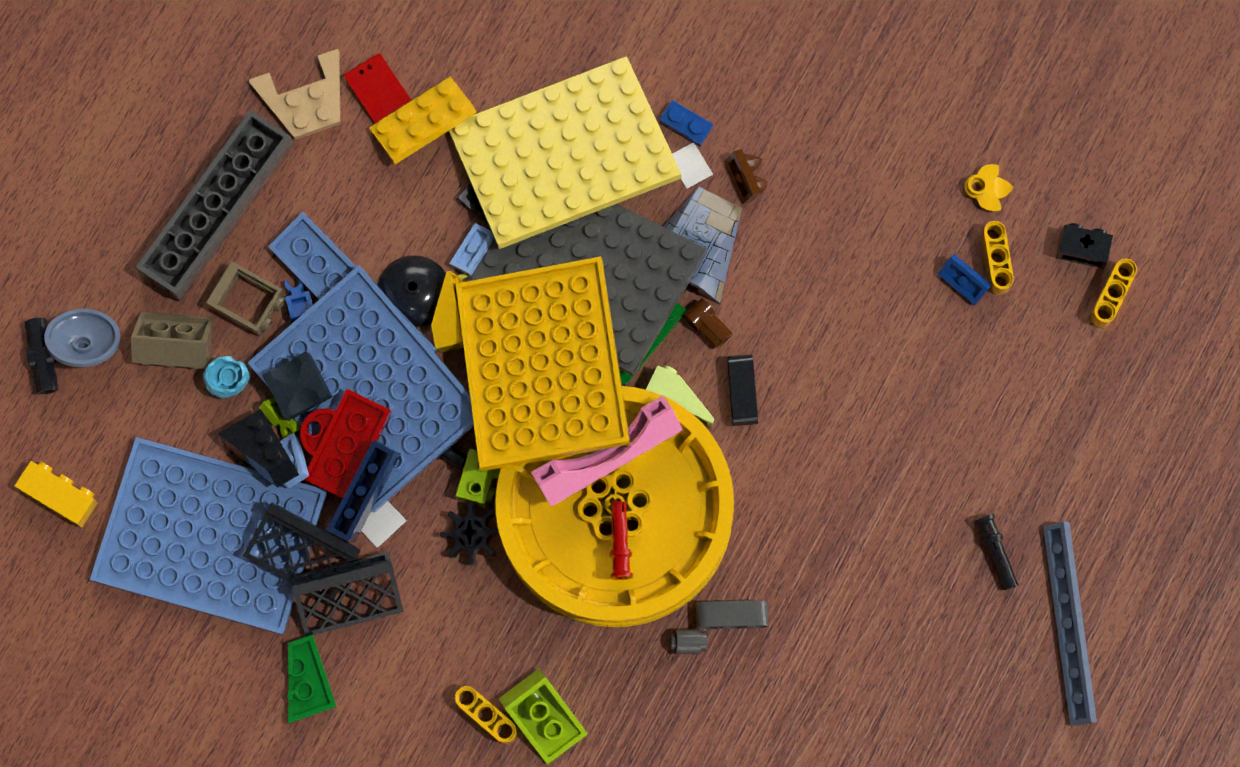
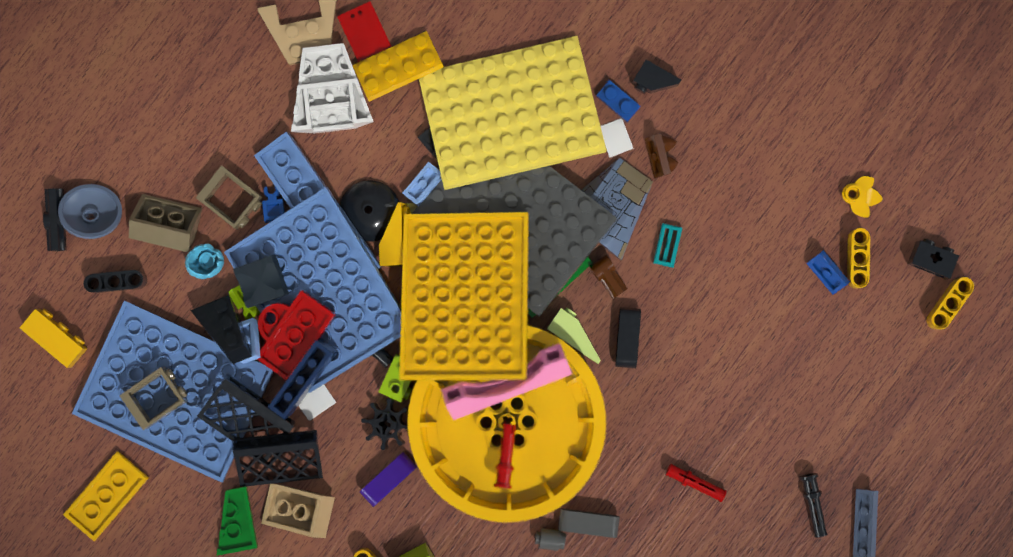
camera: 15 degrees right, 10 degrees up
(111, 412) = (105, 281): none -> black beam
(143, 674) = (106, 496): none -> yellow tile
(176, 524) = (138, 411): none -> dark tan window
(215, 205) = (214, 114): dark grey brick -> none
(346, 162) = (328, 92): none -> white wedge
(379, 654) = (298, 510): none -> tan slope
(482, 600) = (388, 479): none -> dark purple beam
(724, 91) = (654, 79): none -> black slope
(770, 298) = (668, 241): none -> teal tile
(851, 547) = (695, 482): none -> red pin

